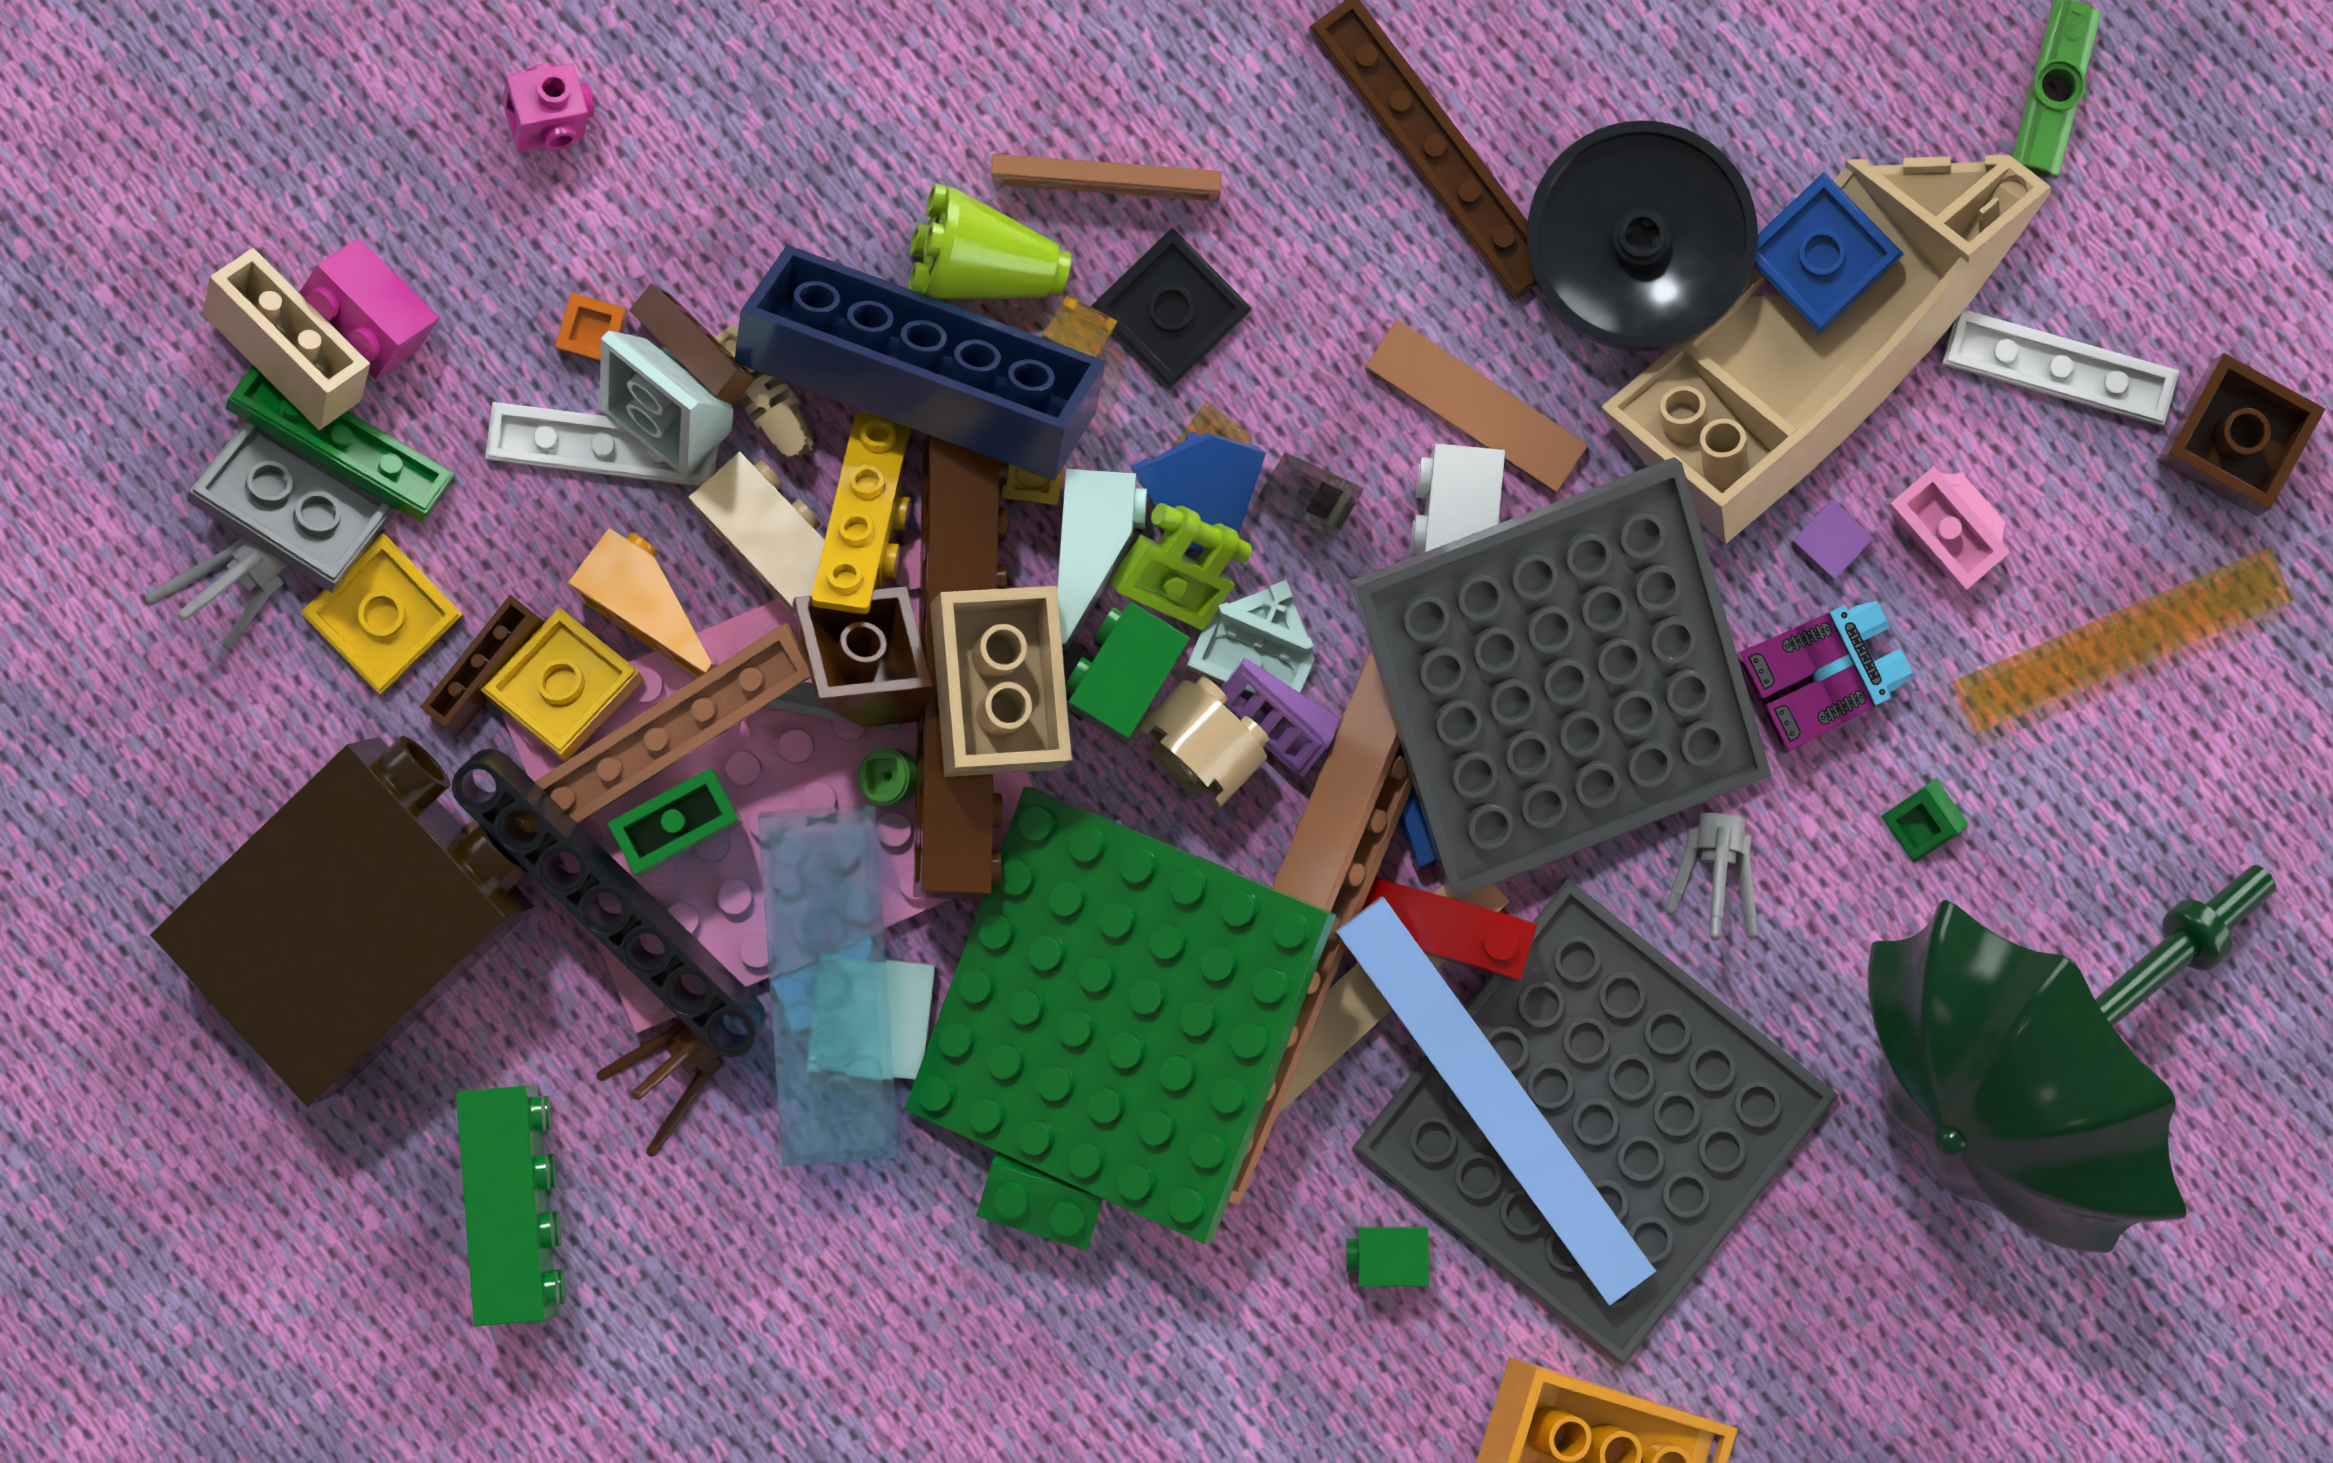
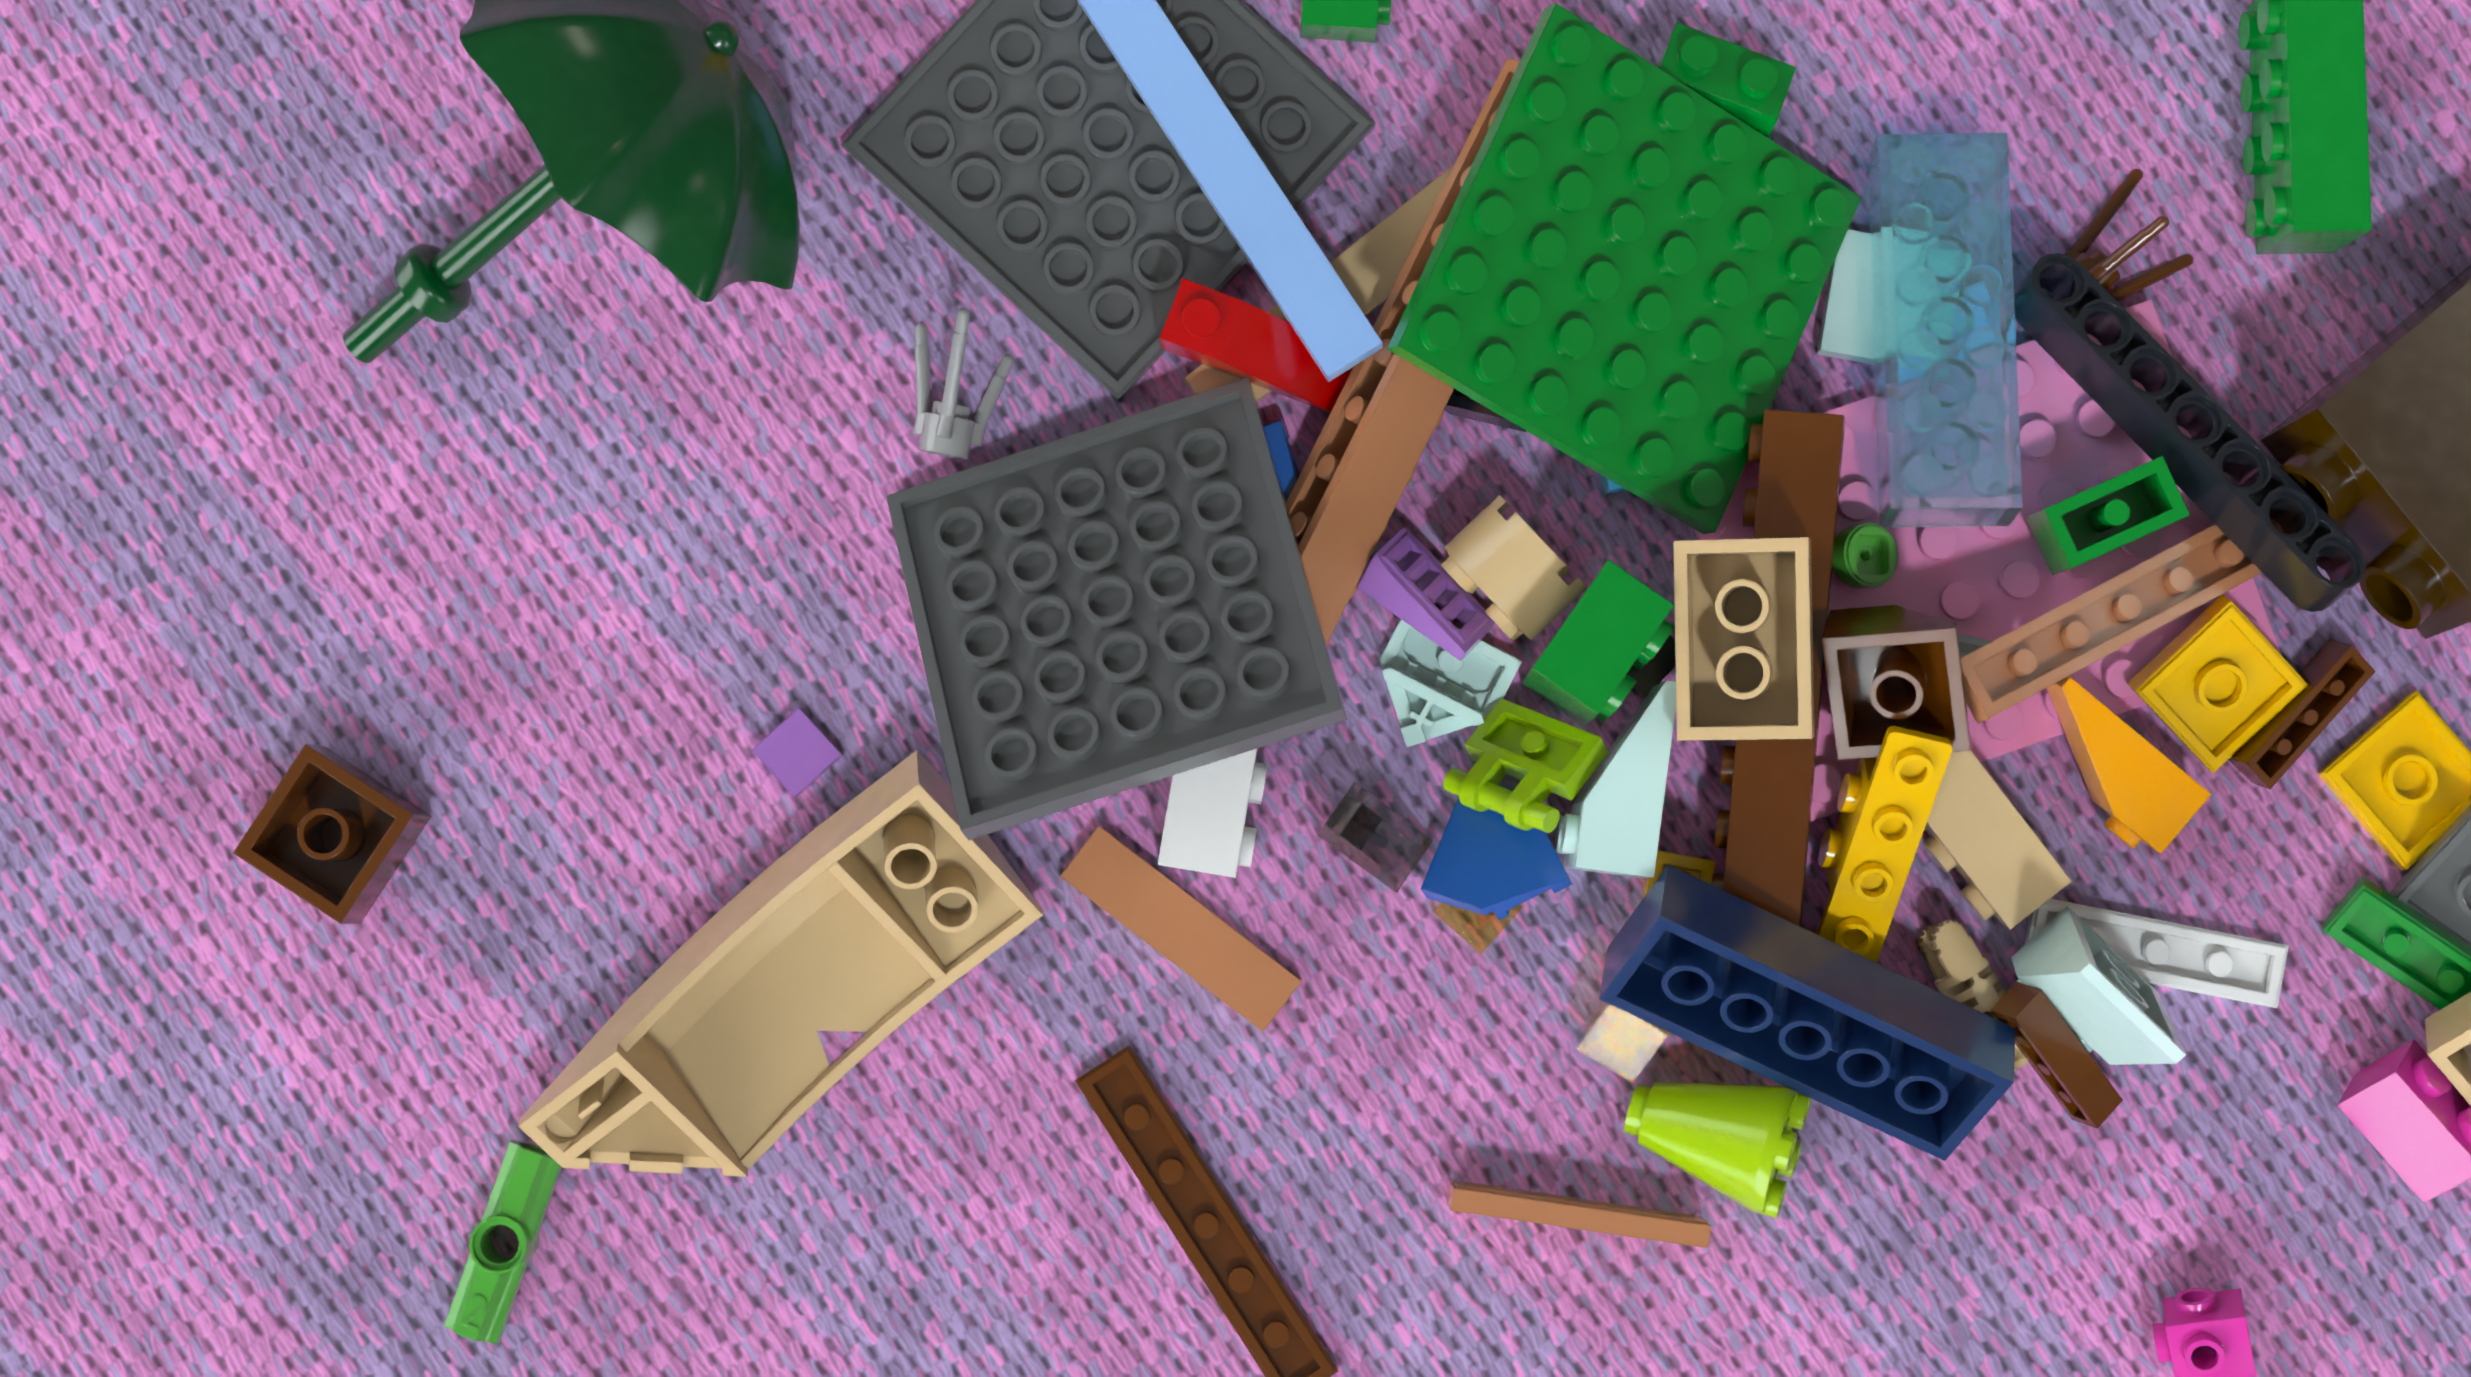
camera: 175 degrees left, 0 degrees up
(586, 323) = (2165, 1088): orange plate -> none
(1172, 308) = (1512, 1062): black tile -> none
(1642, 235) = (982, 1105): black dish -> none
(1823, 253) = (782, 1072): blue tile -> none
(1841, 671) = (798, 600): hips -> none
(1925, 820) = (720, 437): green slope -> none
(1952, 525) = (662, 757): bright pink slope -> none
(2060, 367) = (527, 927): white tile -> none
(2122, 640) = (486, 619): clear yellow tile -> none

